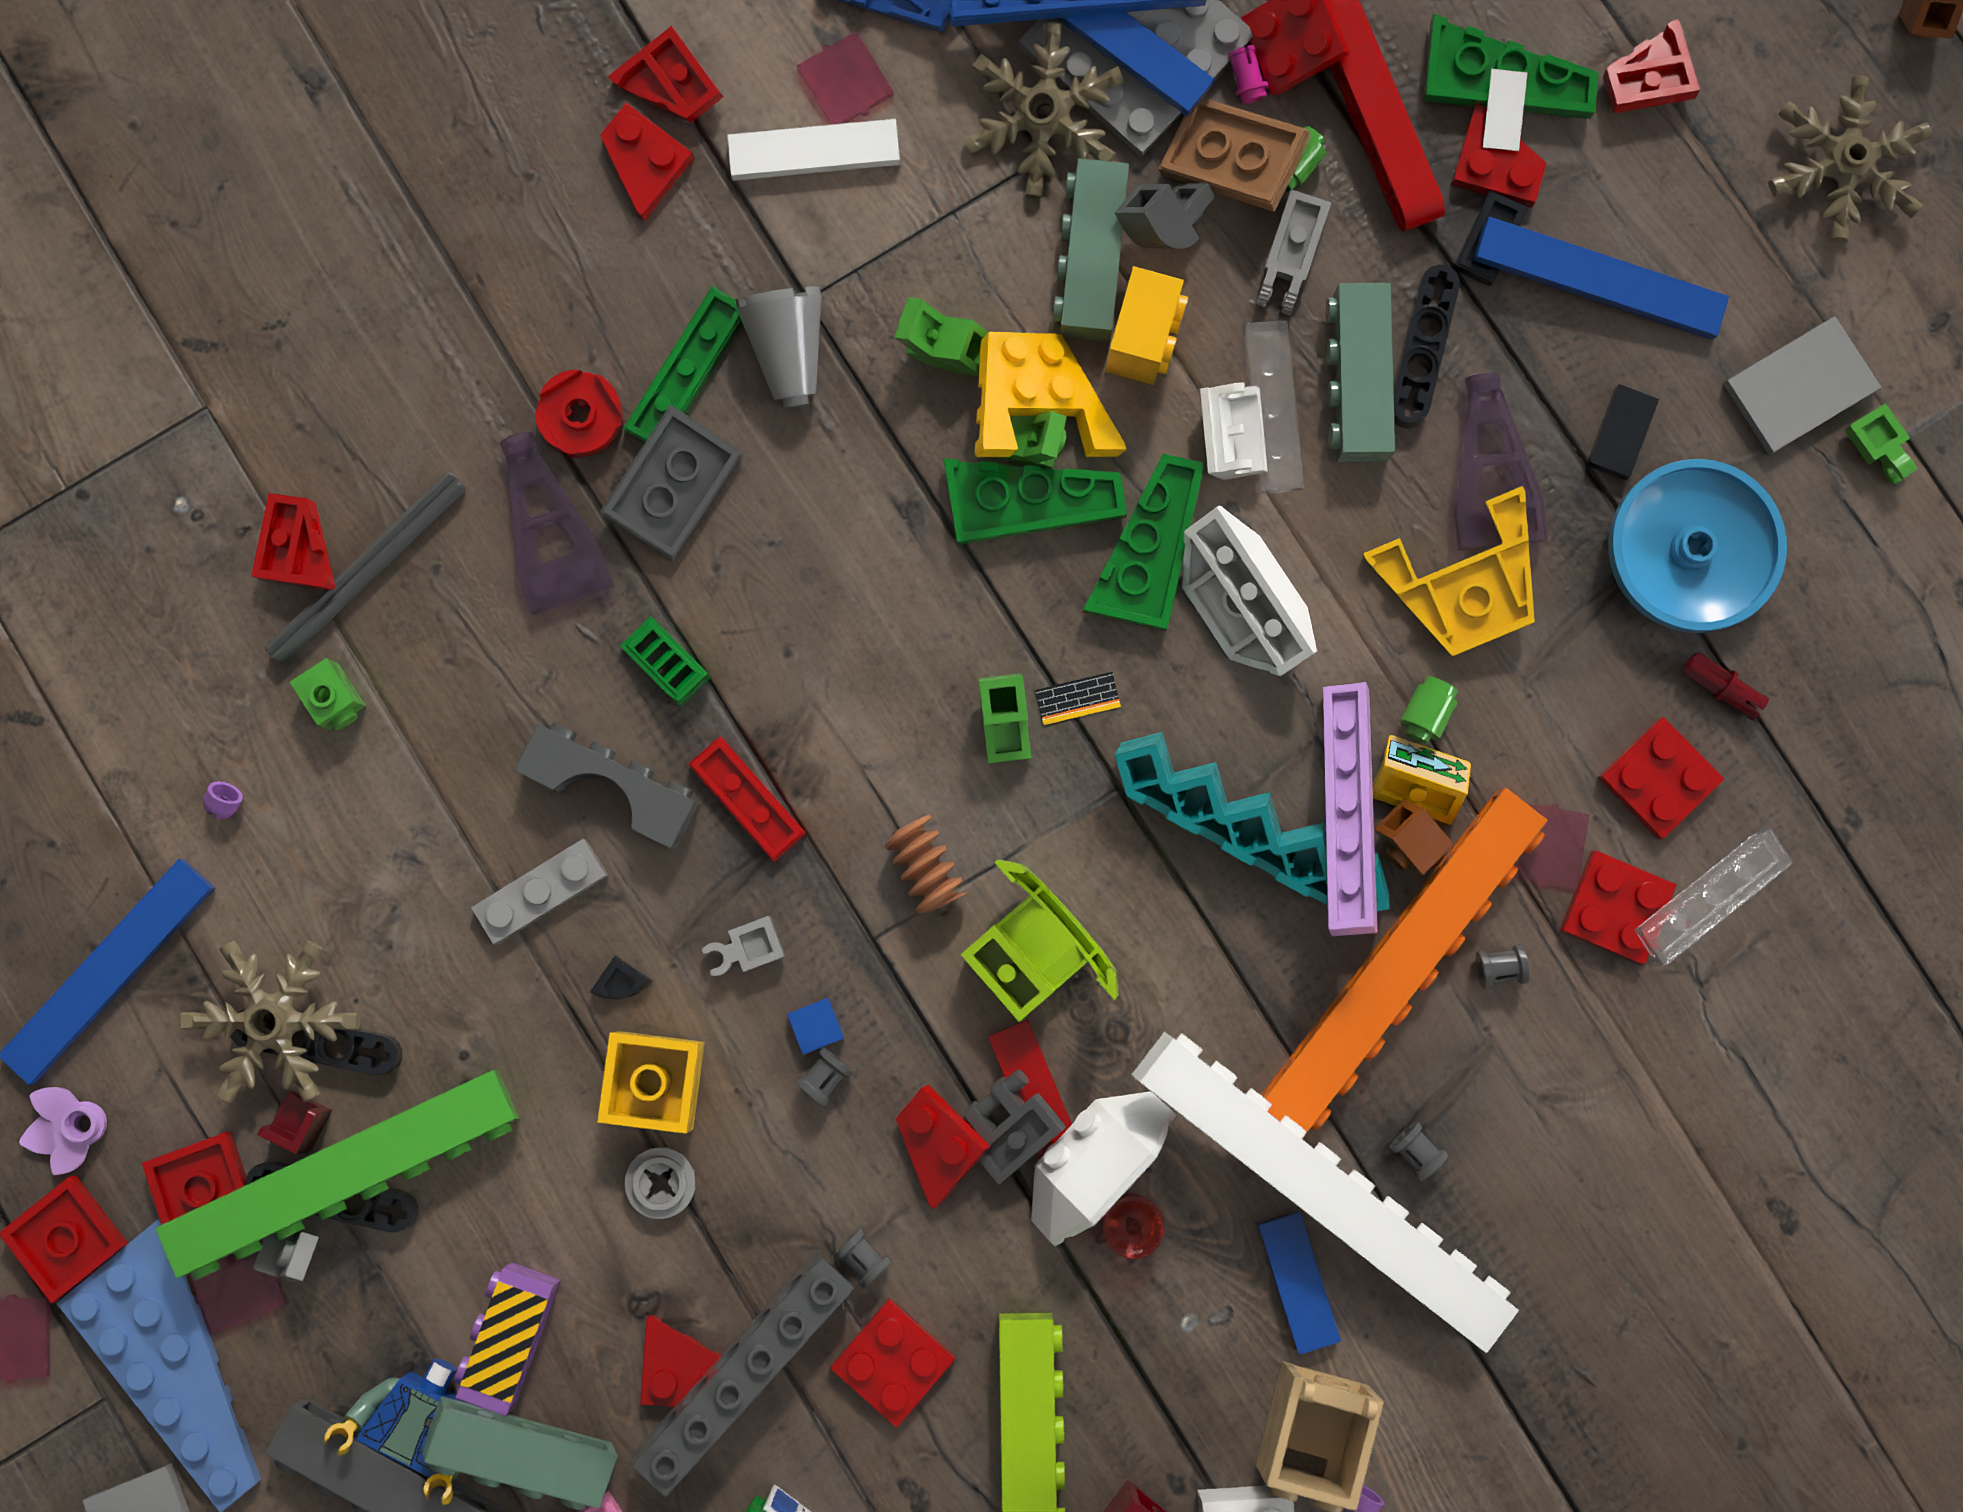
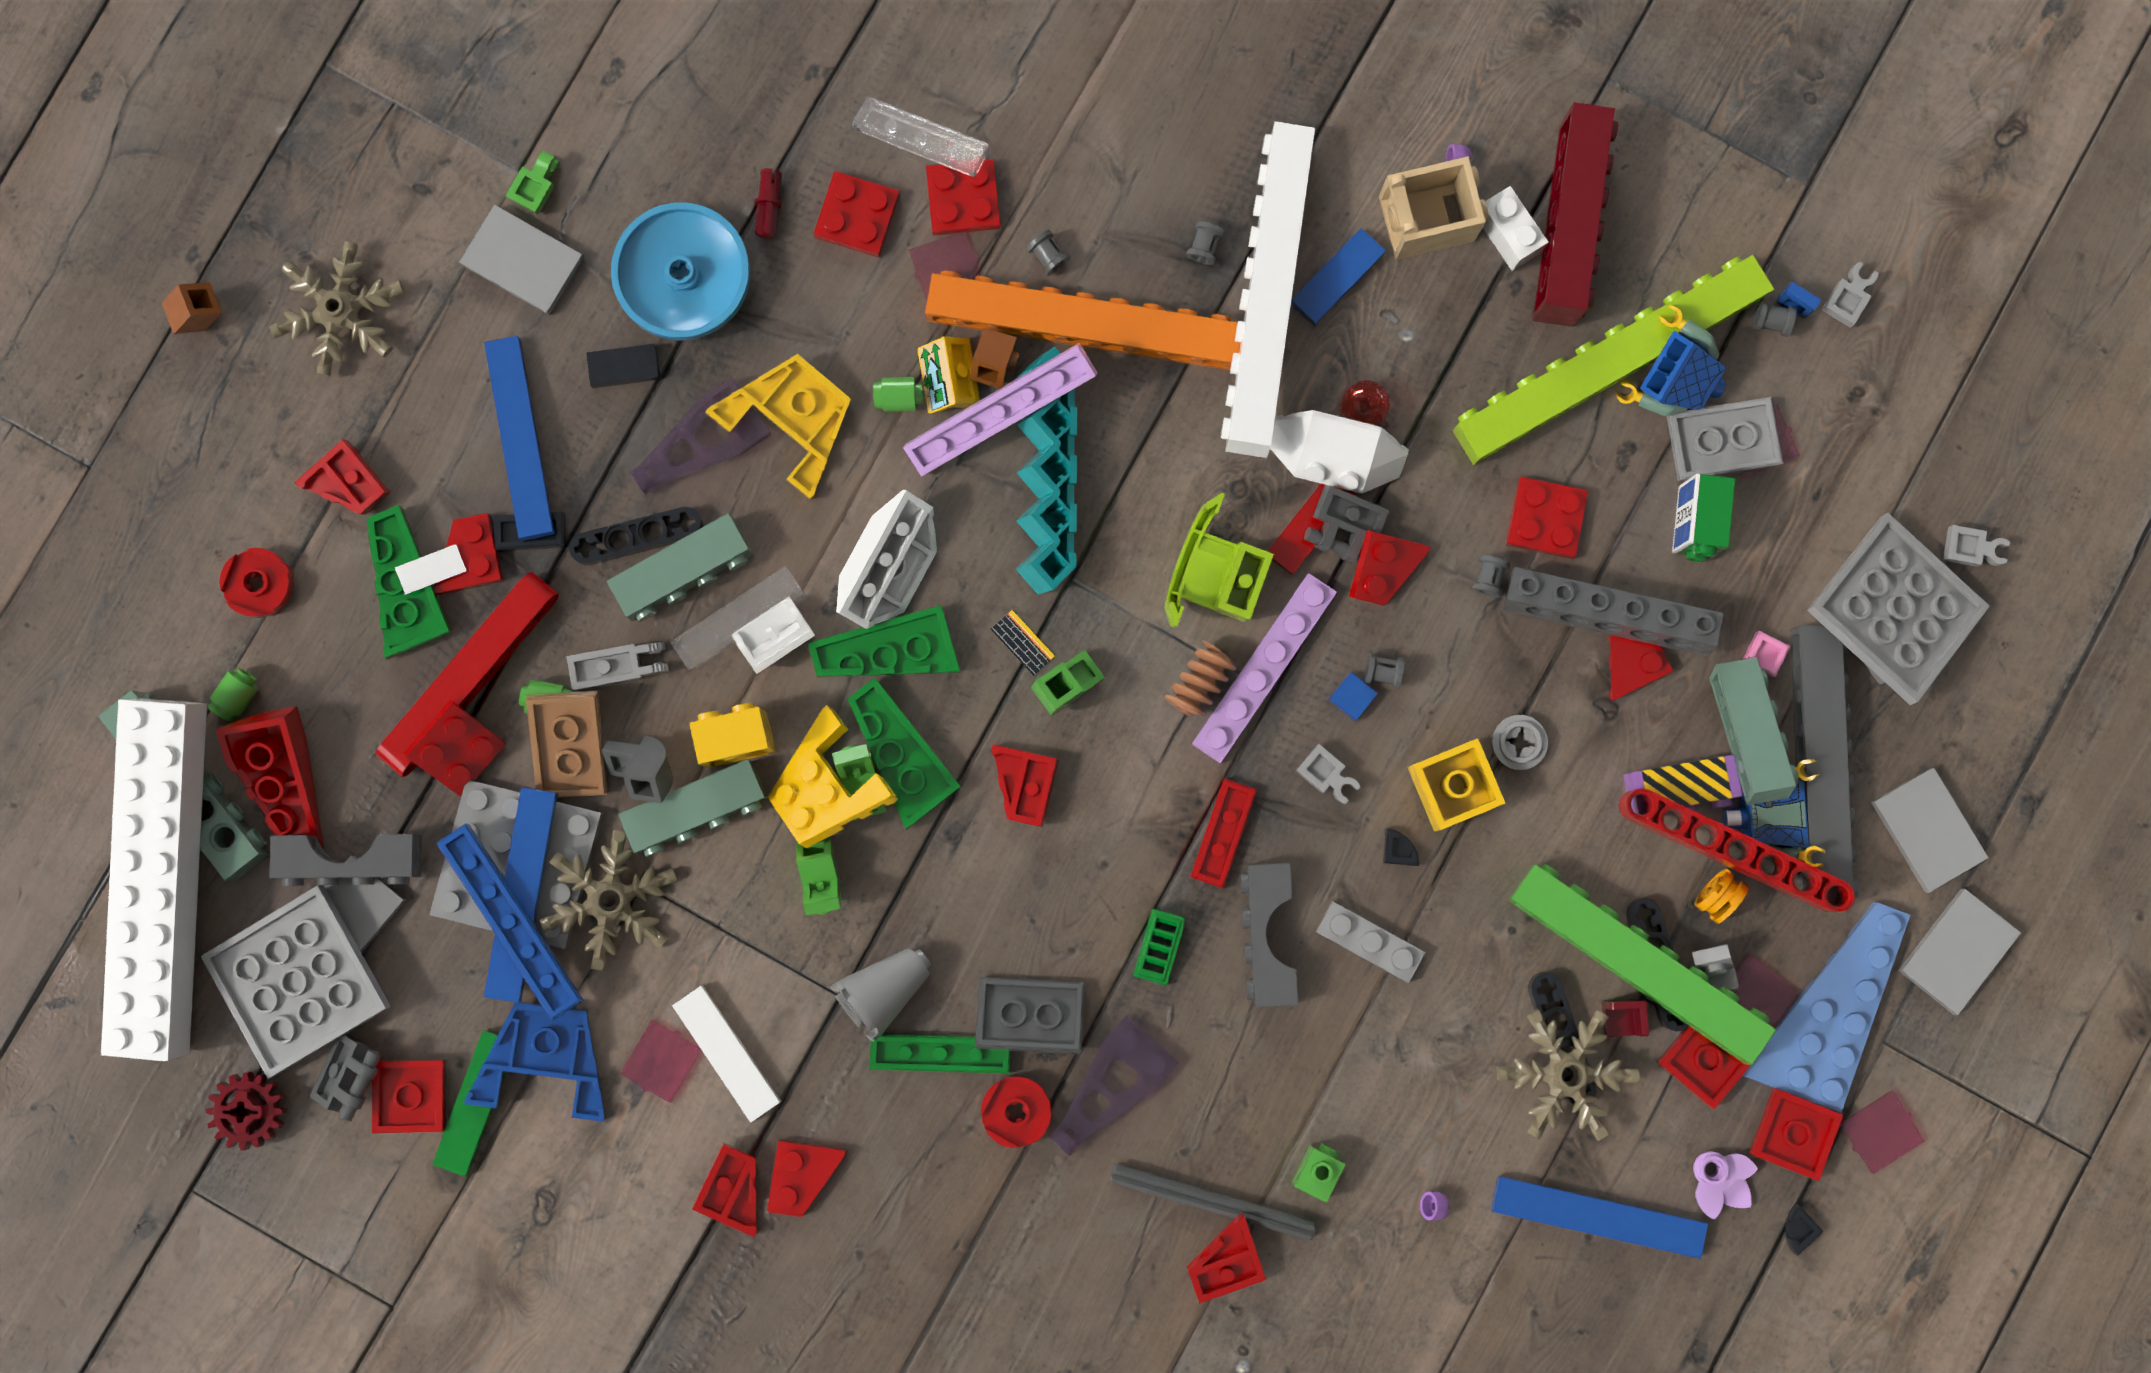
camera: 120 degrees left, 0 degrees up
(362, 1309) = (1721, 896): none -> light orange wheel
(380, 1366) = (1752, 851): none -> red beam
(902, 946) = (1264, 668): none -> lavender plate
(921, 614) = (1025, 783): none -> red wing
(1247, 75) = (501, 767): dark pink pin -> none

